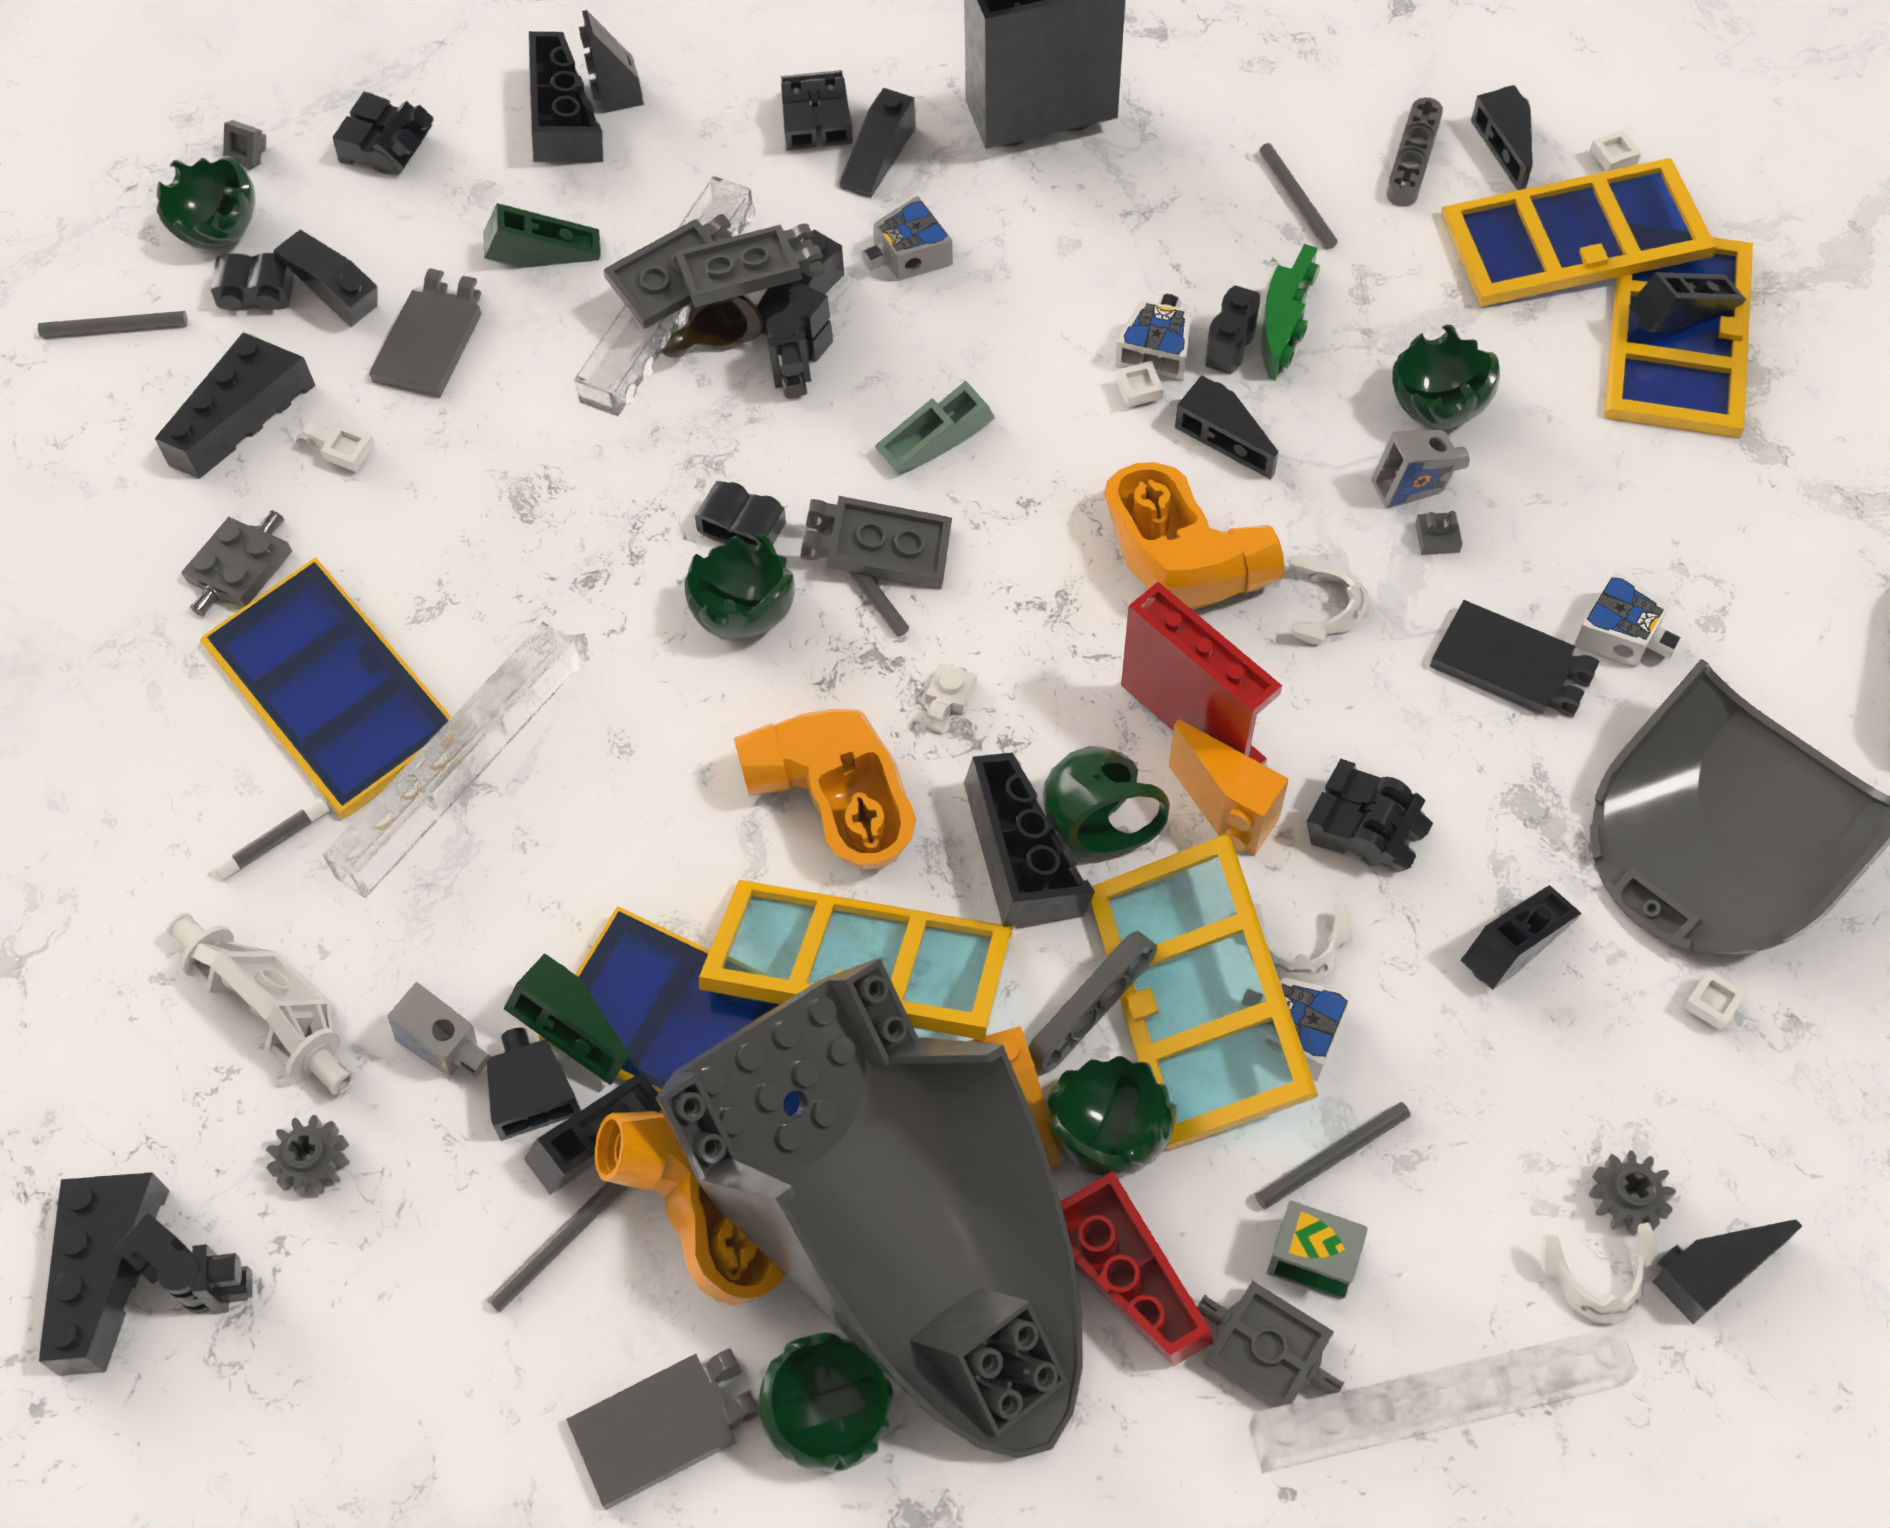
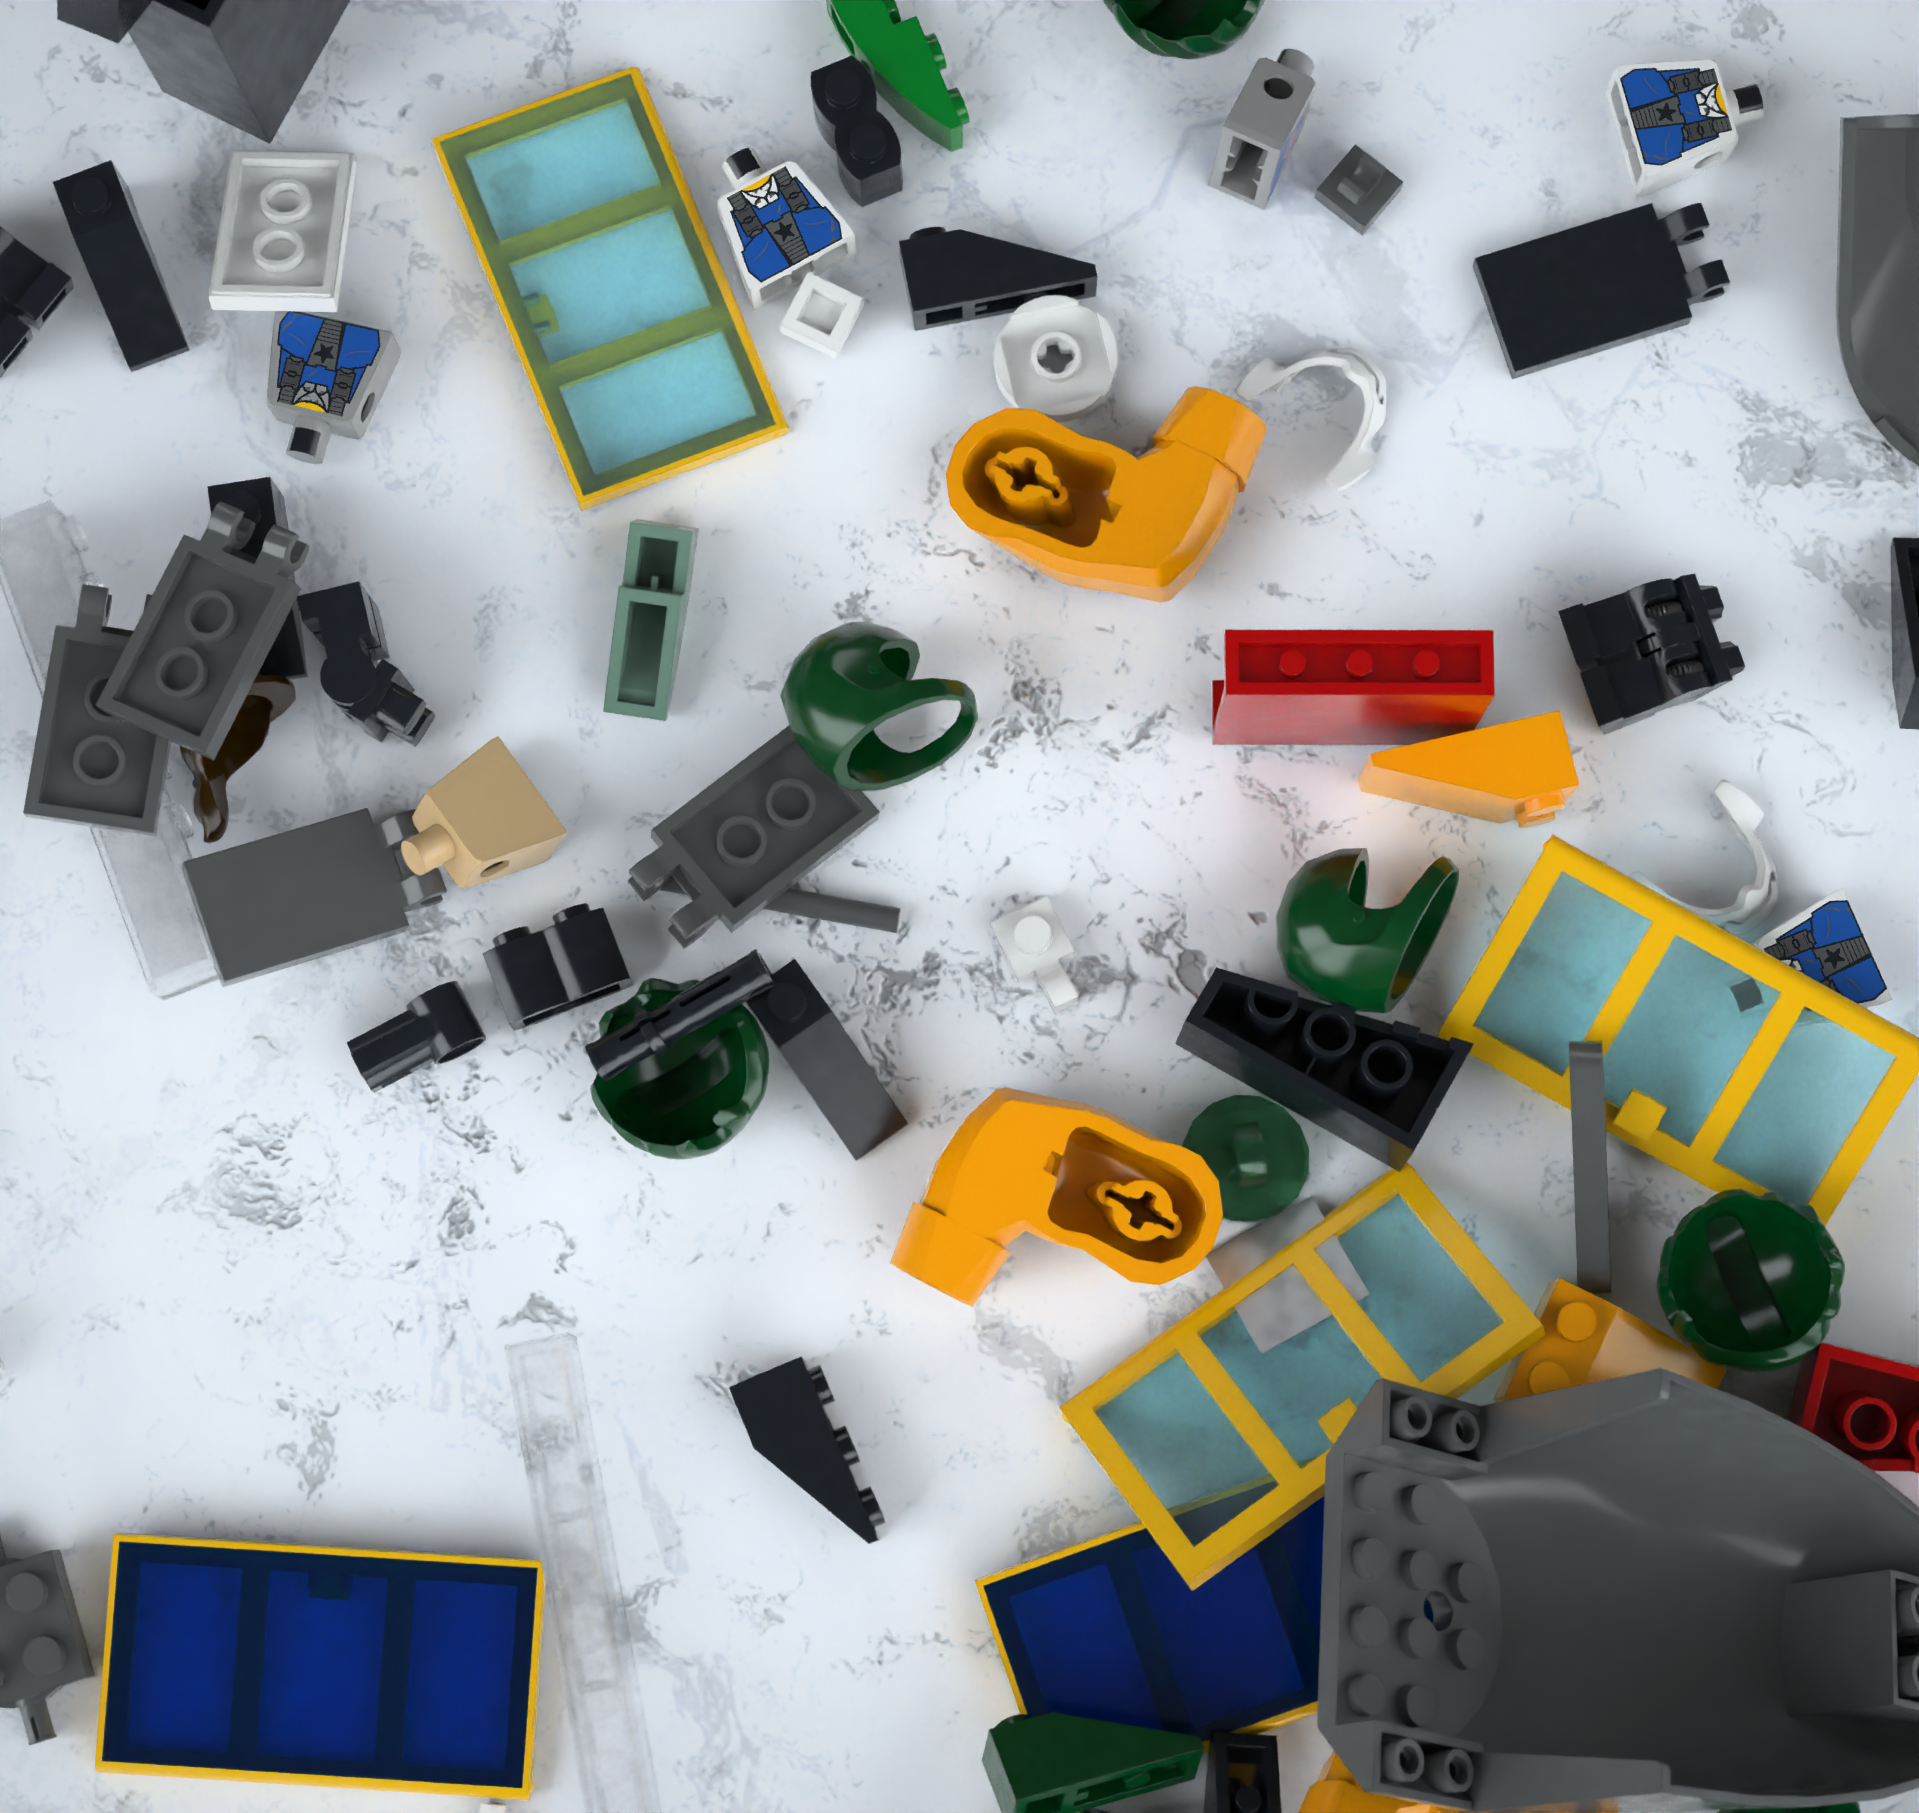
camera: 45 degrees left, 20 degrees up
(618, 777) = (793, 1432): none -> black slope
(664, 497) = (432, 1029): none -> black piece
(678, 402) = (306, 893): none -> dark grey tile
(748, 555) = (658, 1028): none -> black pin
(775, 435) = (483, 821): none -> tan torso
(806, 647) = (826, 1061): none -> black slope
(891, 929) = (1287, 1301): none -> flat silver sticker
(941, 859) = (1254, 1155): none -> clear green tile
(953, 178) = (283, 231): none -> white tile
(982, 517) = (852, 684): none -> dark green piece
(1061, 307) = (609, 287): none -> clear light blue door
(1224, 500) = (1075, 331): none -> white plate

